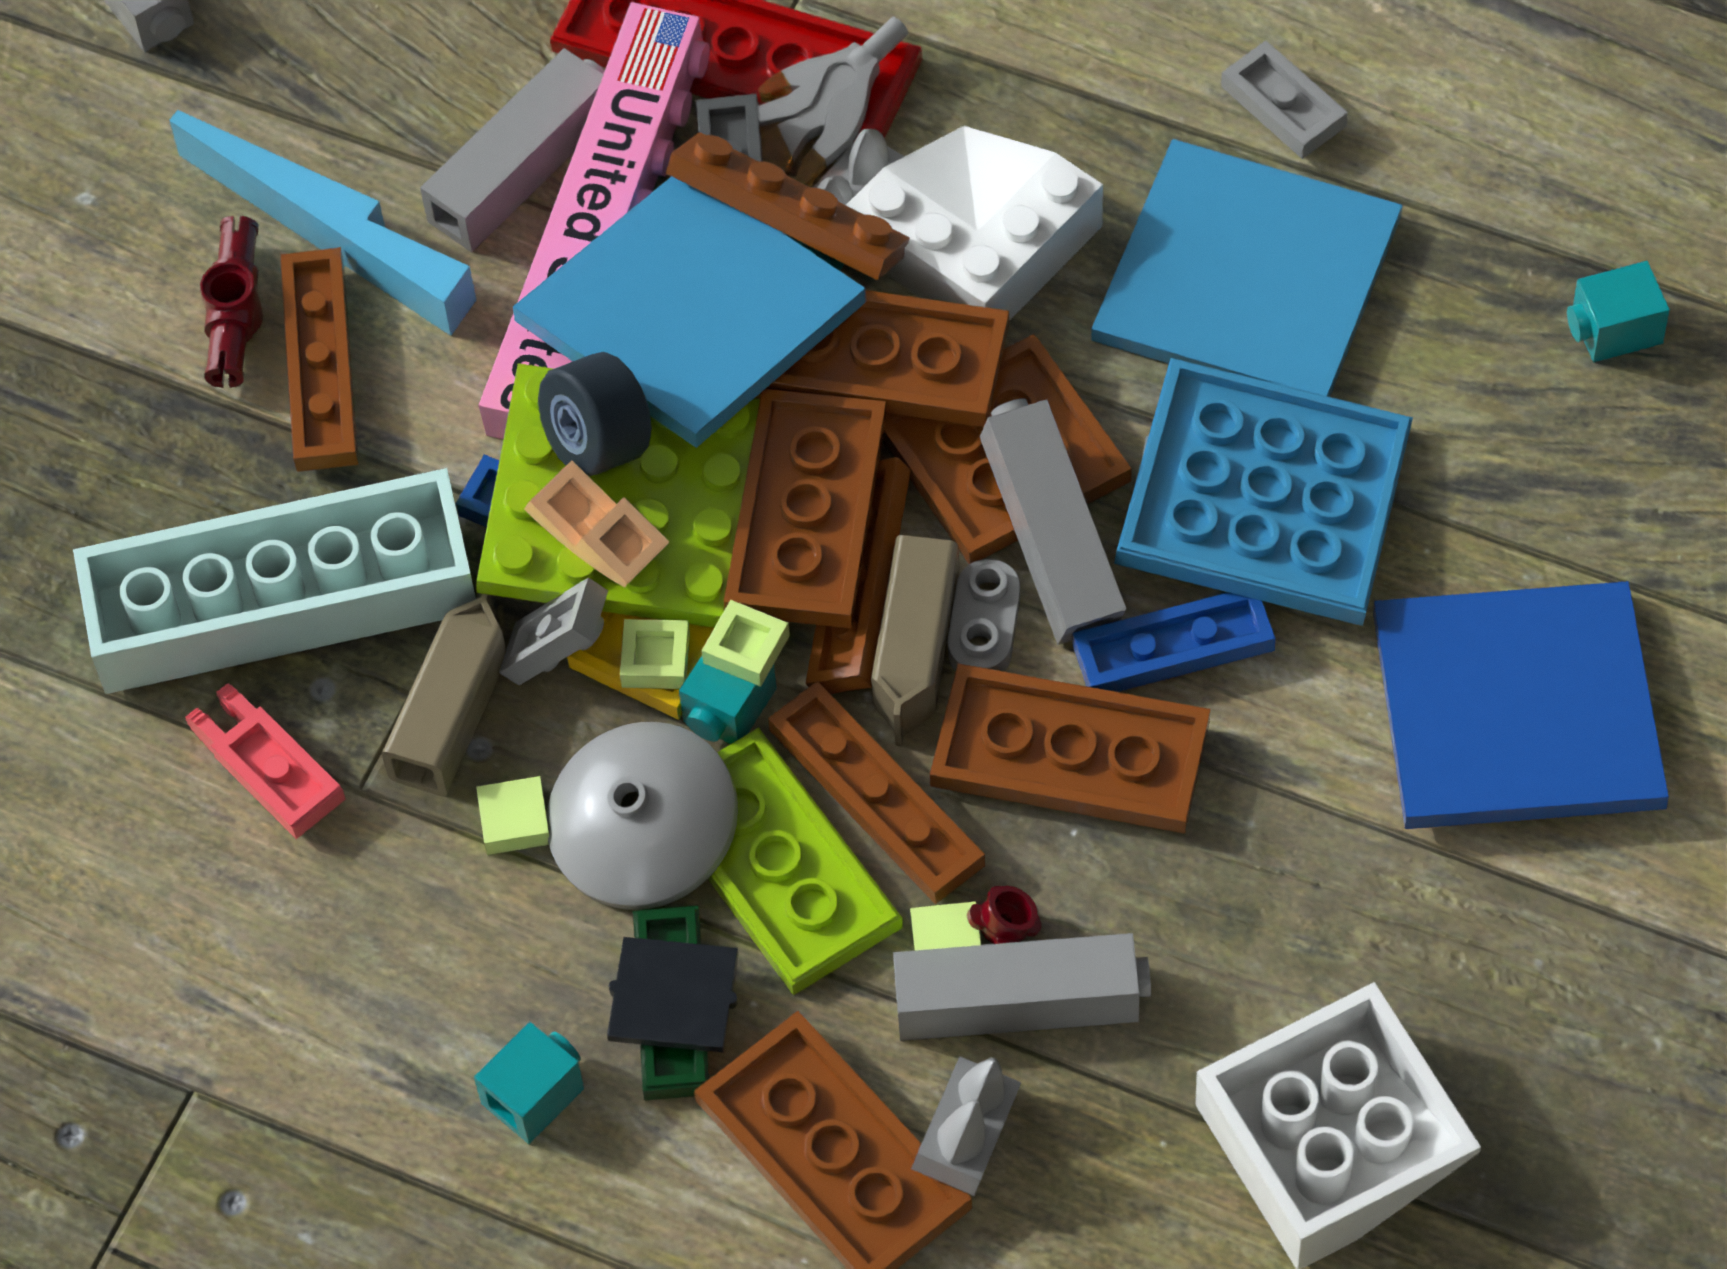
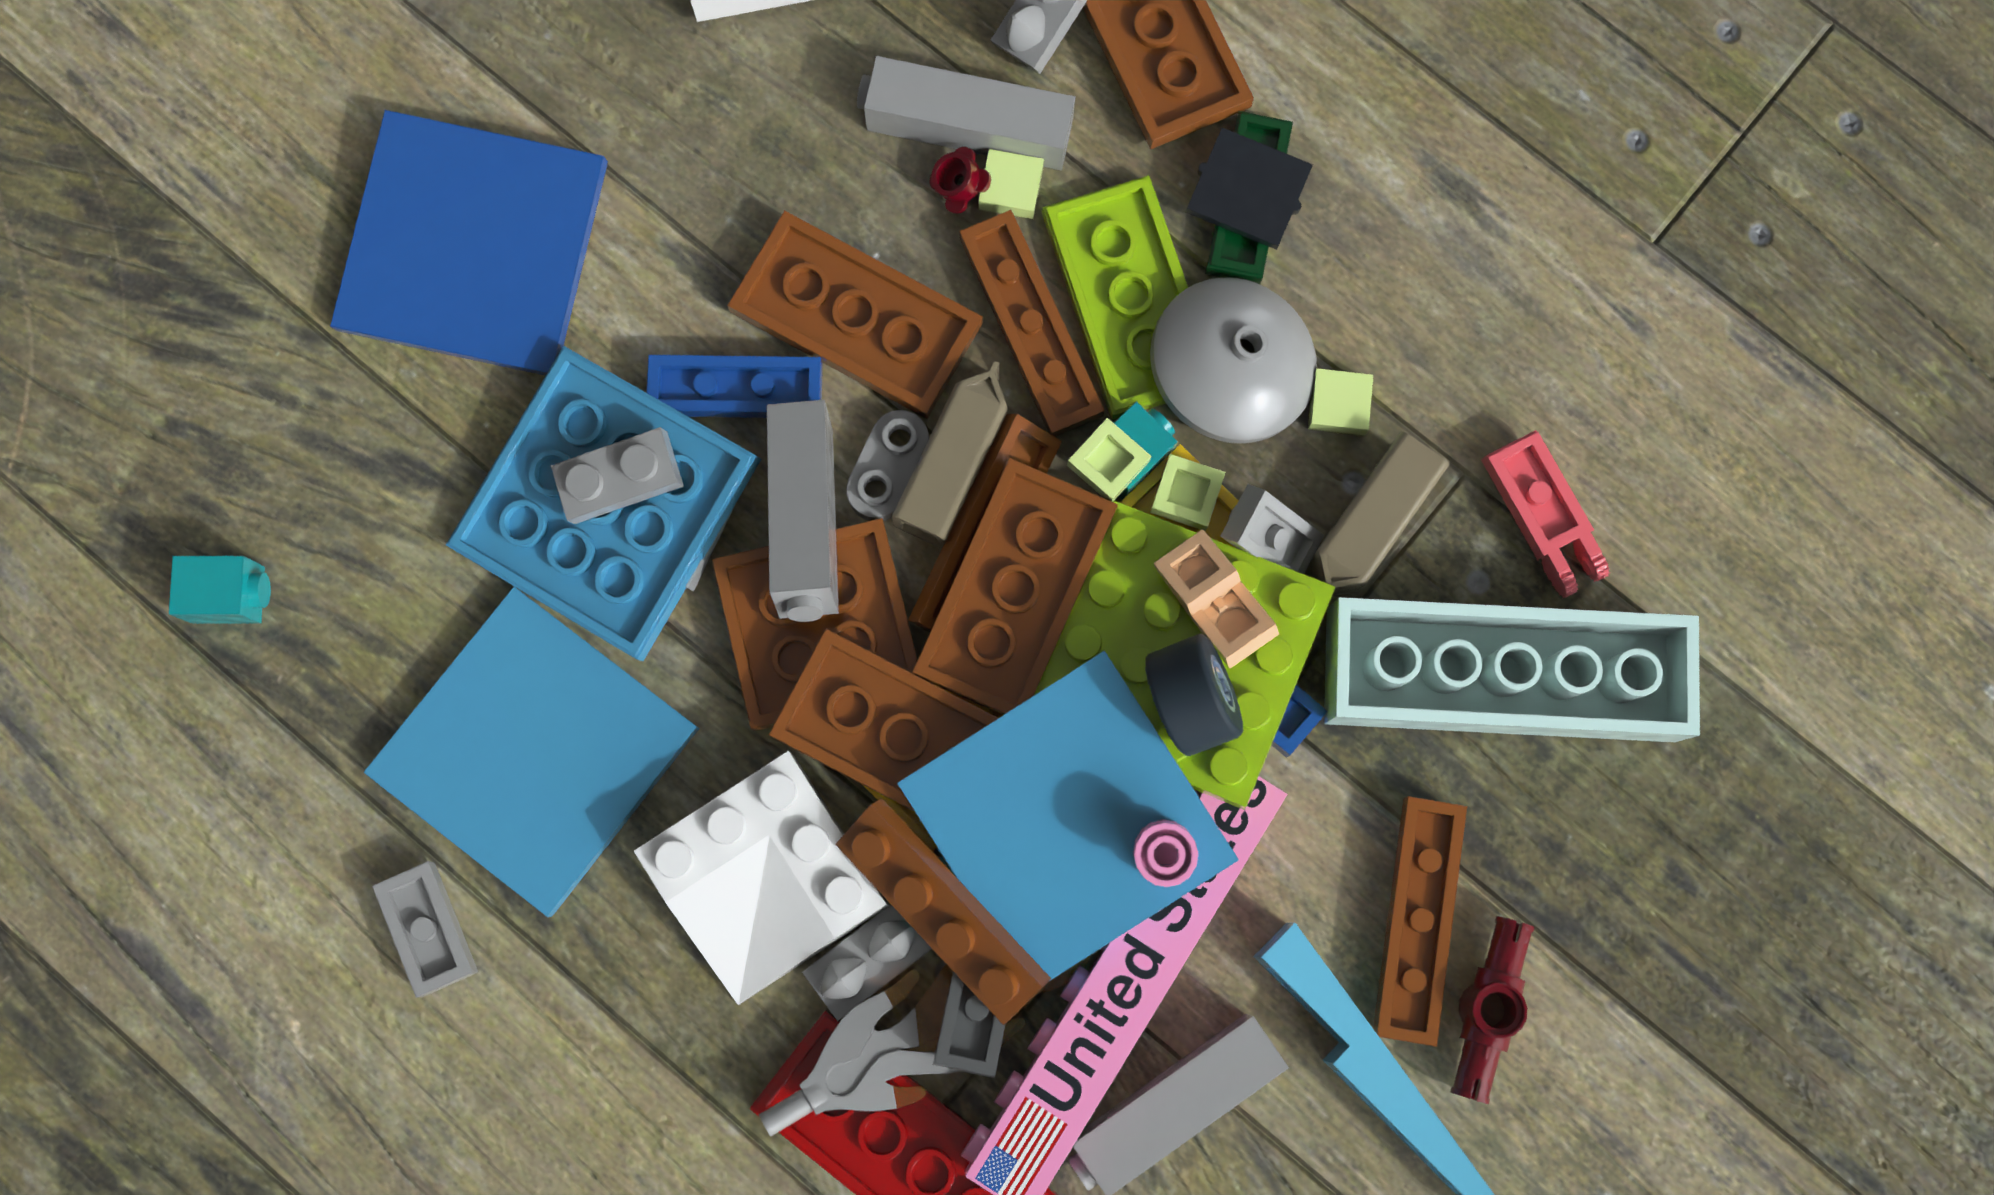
camera: 170 degrees left, 20 degrees up
(530, 1081) = (1383, 148): teal brick -> none
(585, 276) = (1159, 845): none -> bright pink wheel
(1253, 496) = (617, 475): none -> light grey plate

